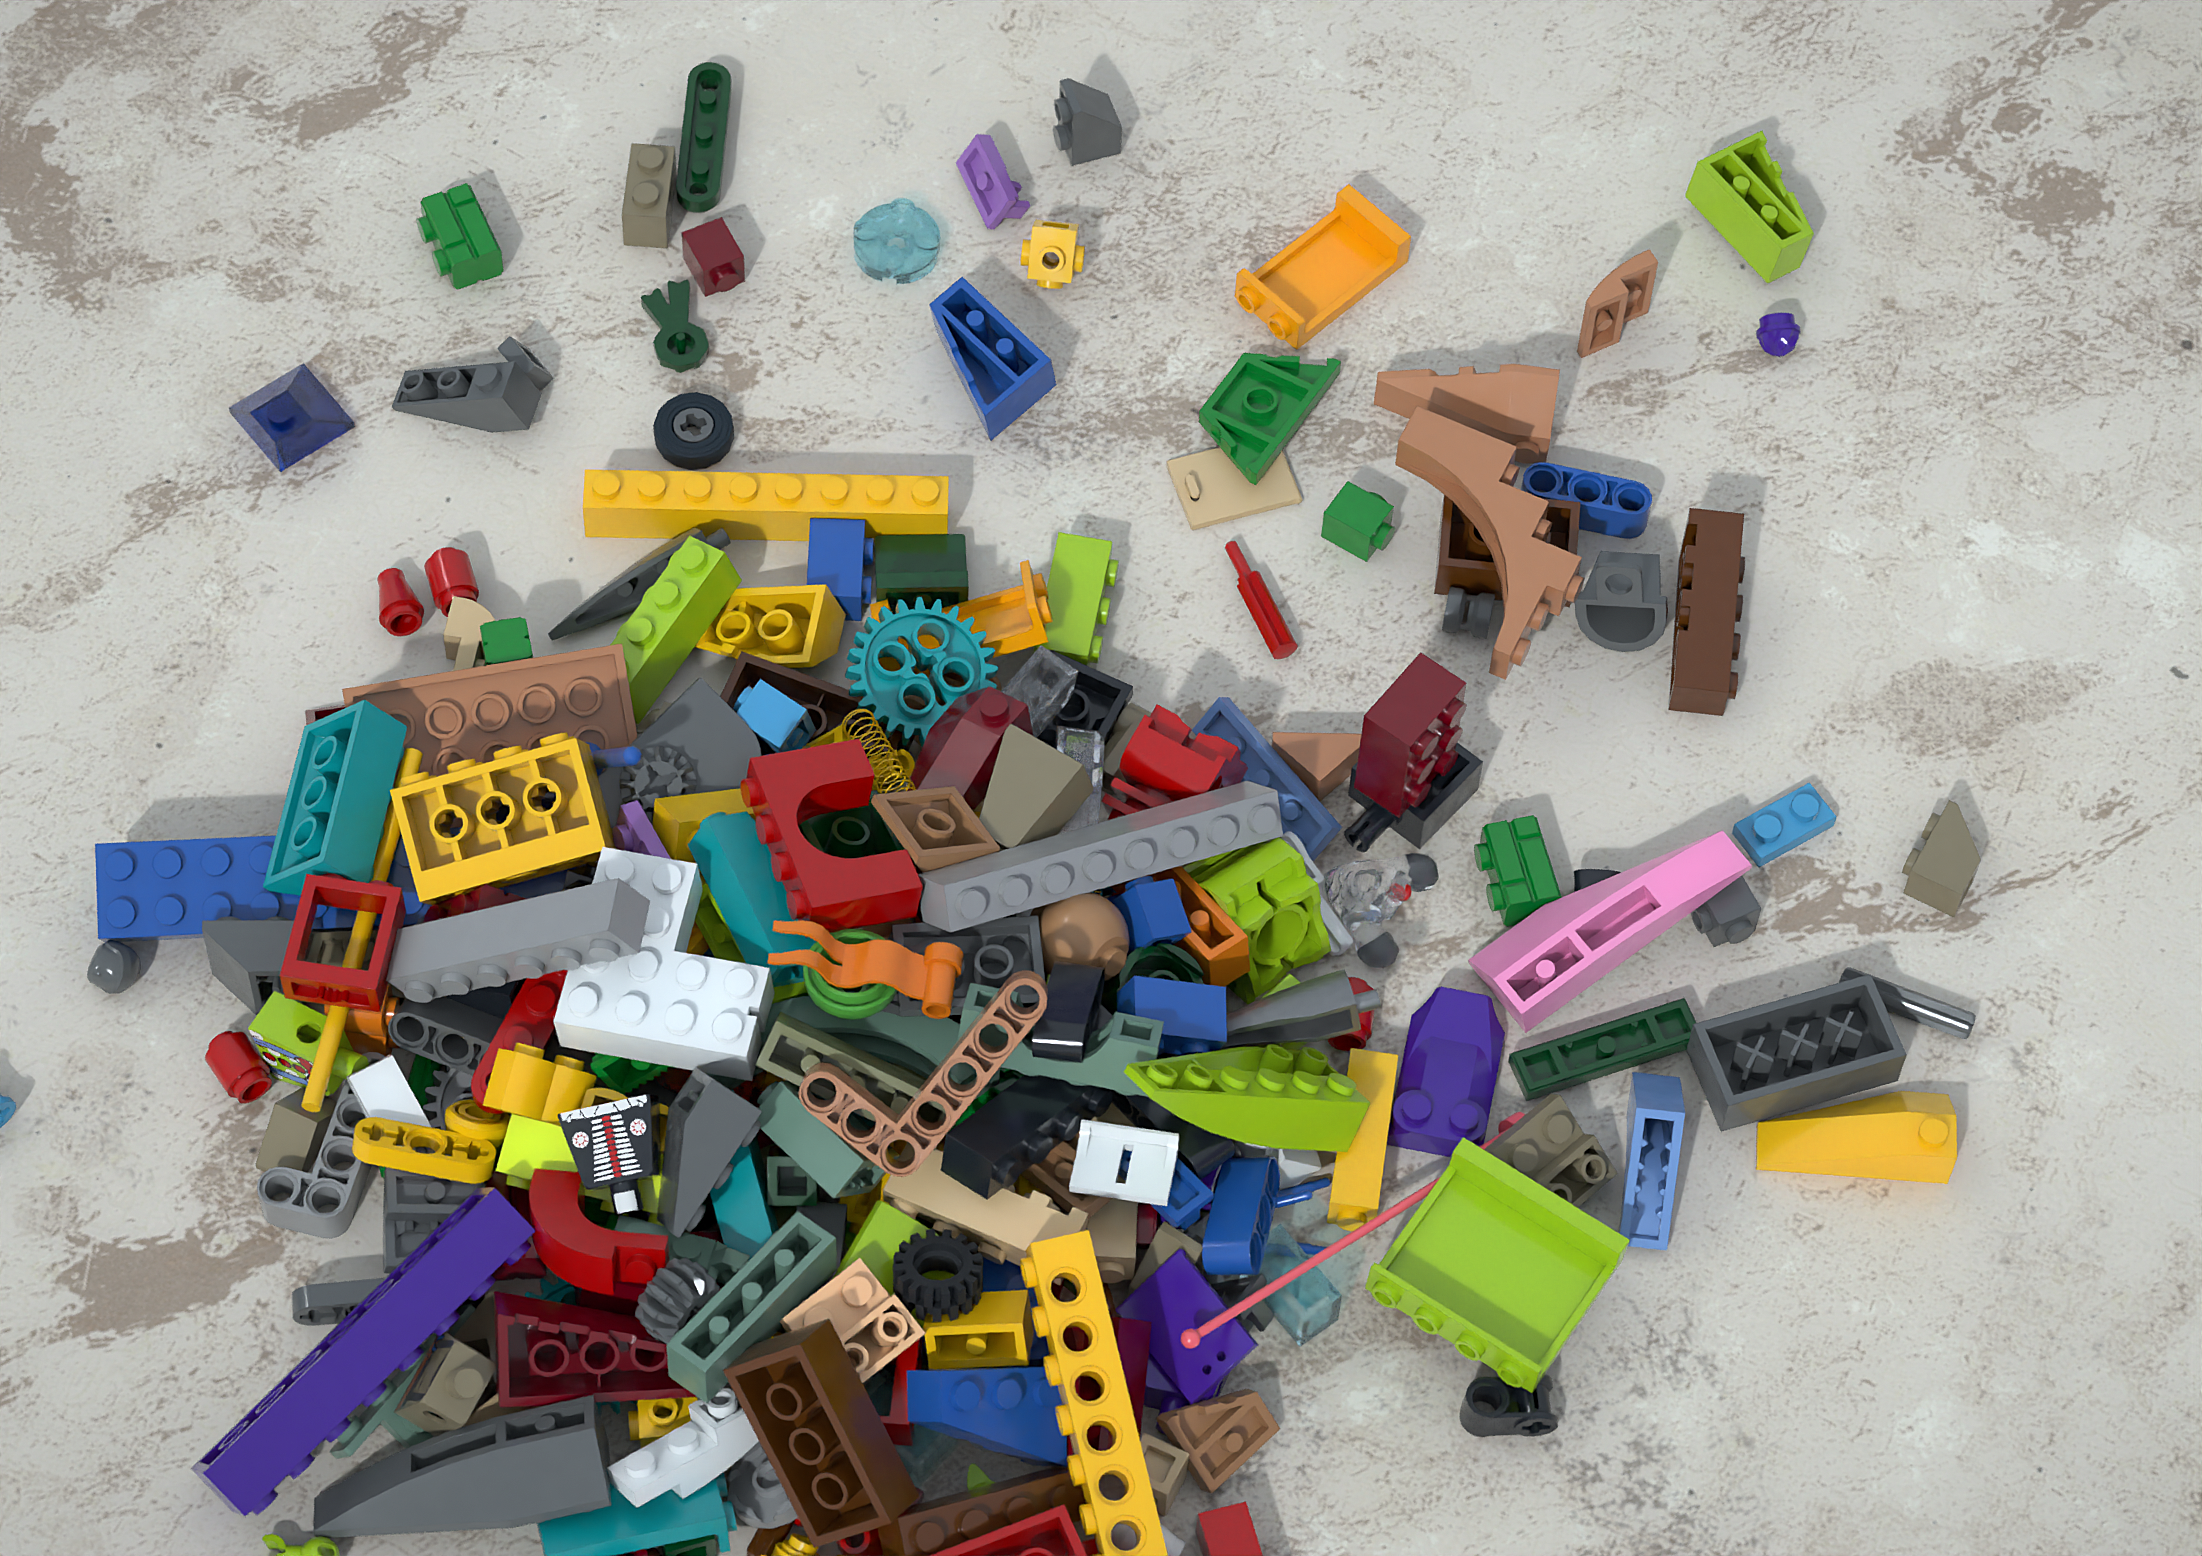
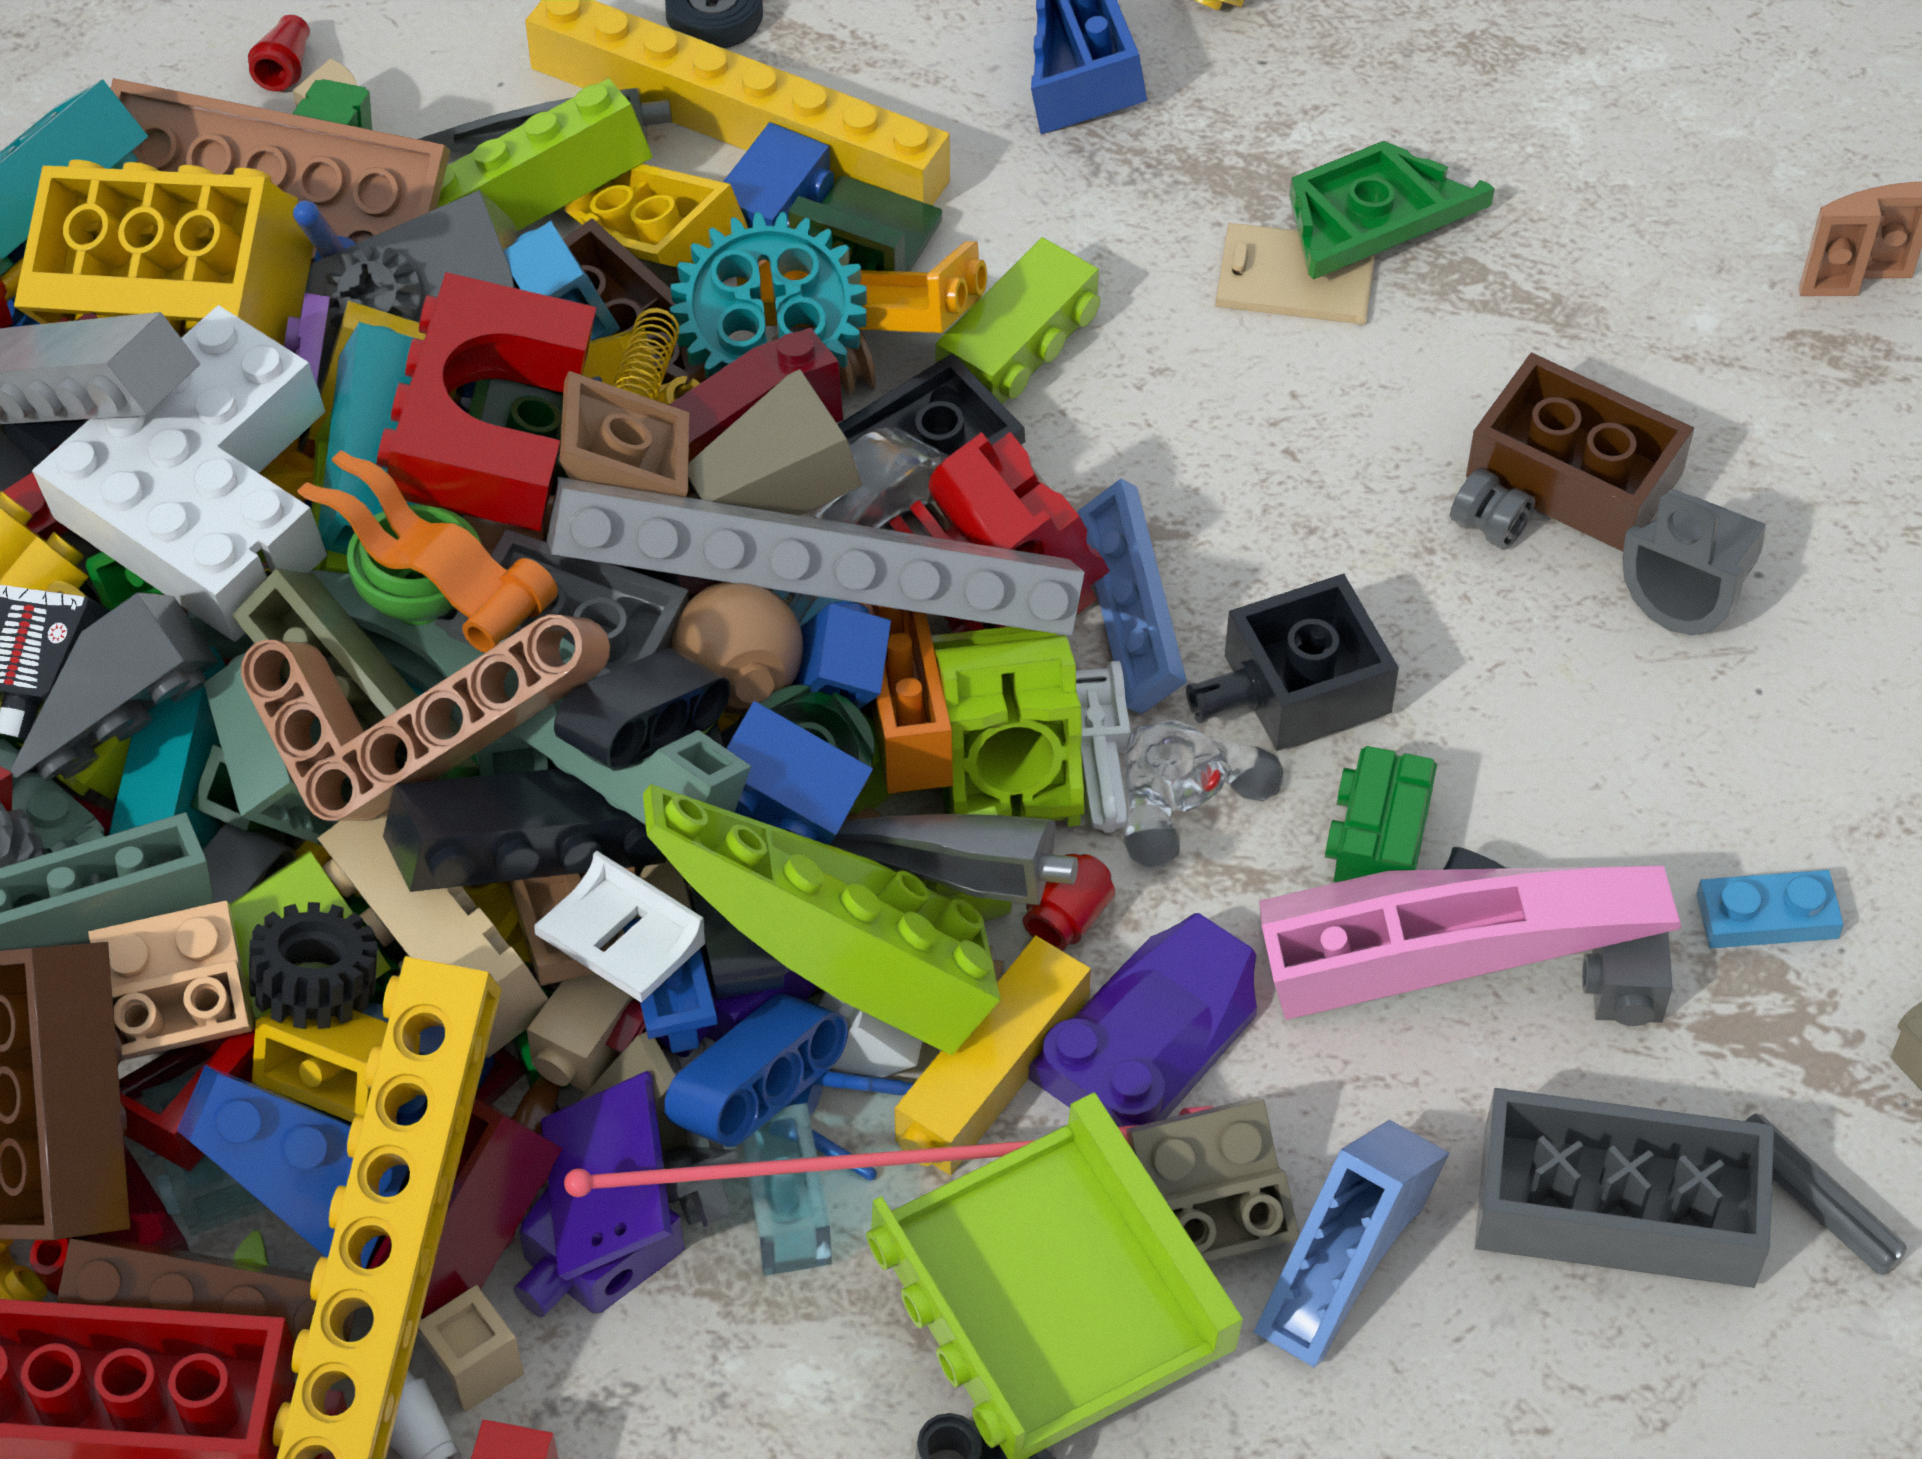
camera: 30 degrees right, 5 degrees down
(449, 576) = (355, 43): red brick -> none
(1043, 685) = (890, 382): clear brick -> none
(1219, 1434) = (581, 1334): medium nougat wing -> none
(1262, 606) = (1245, 412): red axle -> none
(1318, 758) = (1203, 594): nougat slope -> none
(1324, 269) = (1535, 95): light orange panel -> none
(1358, 521) = (1414, 361): green brick -> none
(1410, 735) = (1299, 580): dark red brick -> none
(1480, 480) = (1576, 352): nougat arch -> none
(1505, 404) = (1650, 299): nougat wedge -> none
(1603, 1049) = (1371, 1079): dark green plate -> none
(1607, 496) = (1727, 445): blue beam -> none
(1707, 613) = (1797, 617): reddish brown wedge -> none
(1873, 1137) = (1680, 1346): yellow wedge -> none

